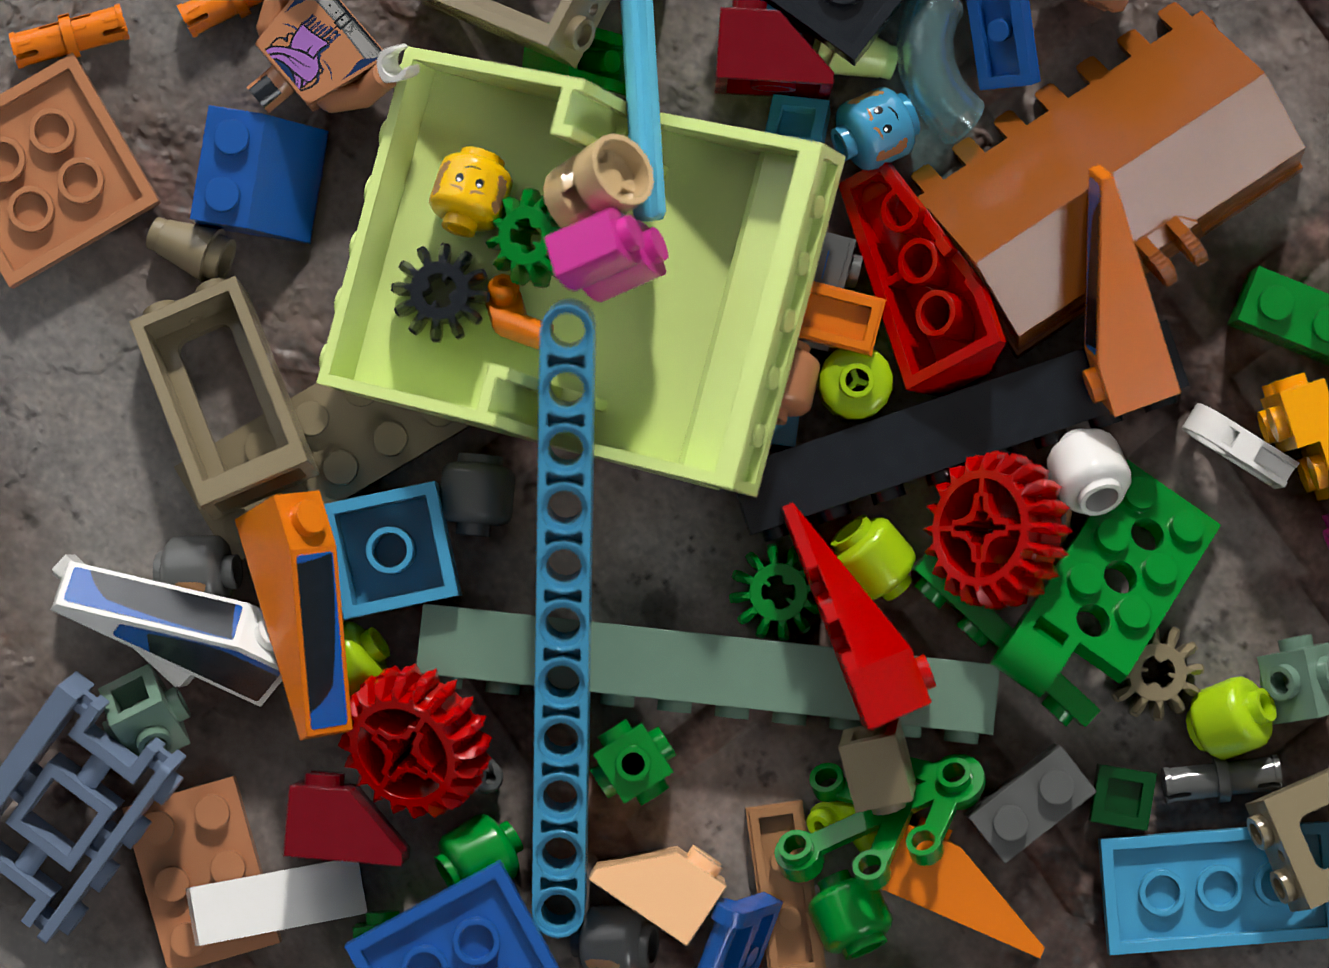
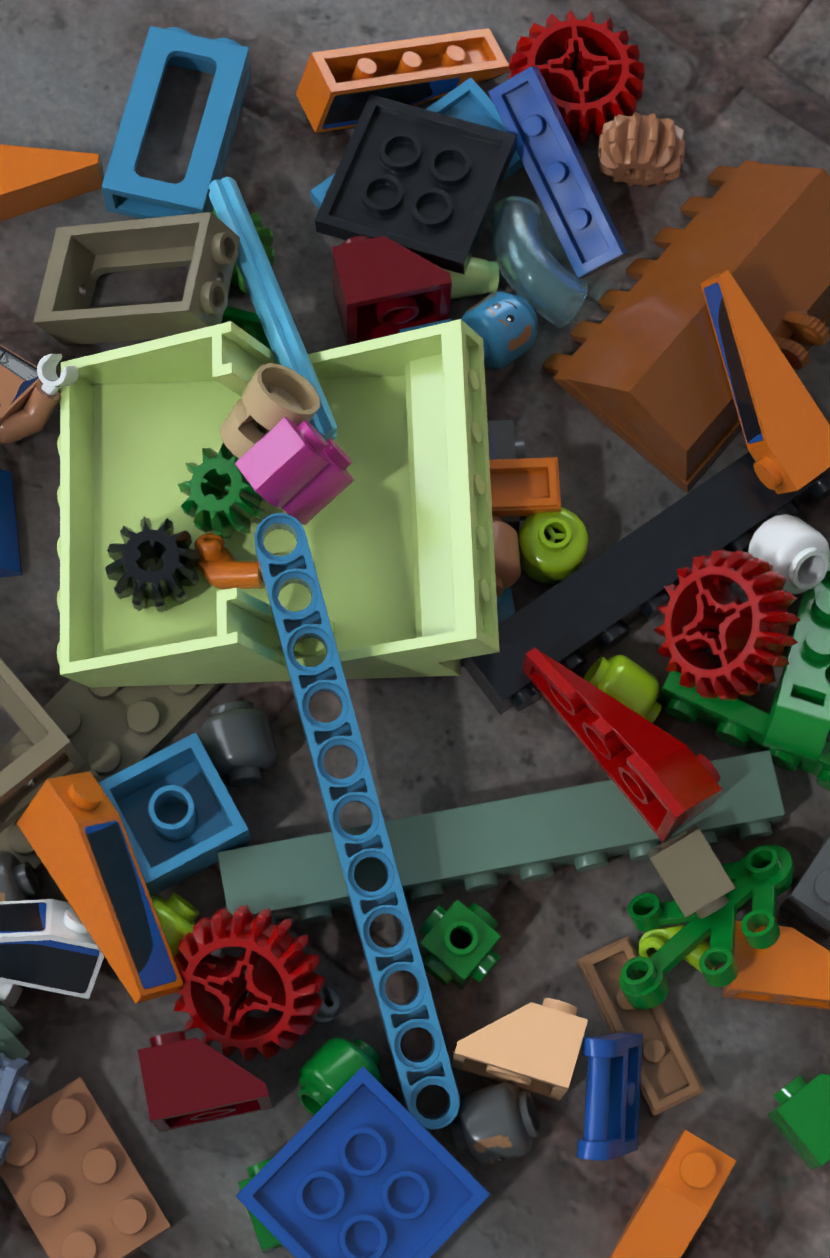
camera: 20 degrees left, 15 degrees down
(275, 901) = (154, 1182): white tile -> none
(470, 191) = (154, 469): yellow head -> none
(766, 608) = (536, 768): green gear -> none
(849, 916) = (709, 1028): green head -> none
(935, 301) = (605, 451): red wedge -> none

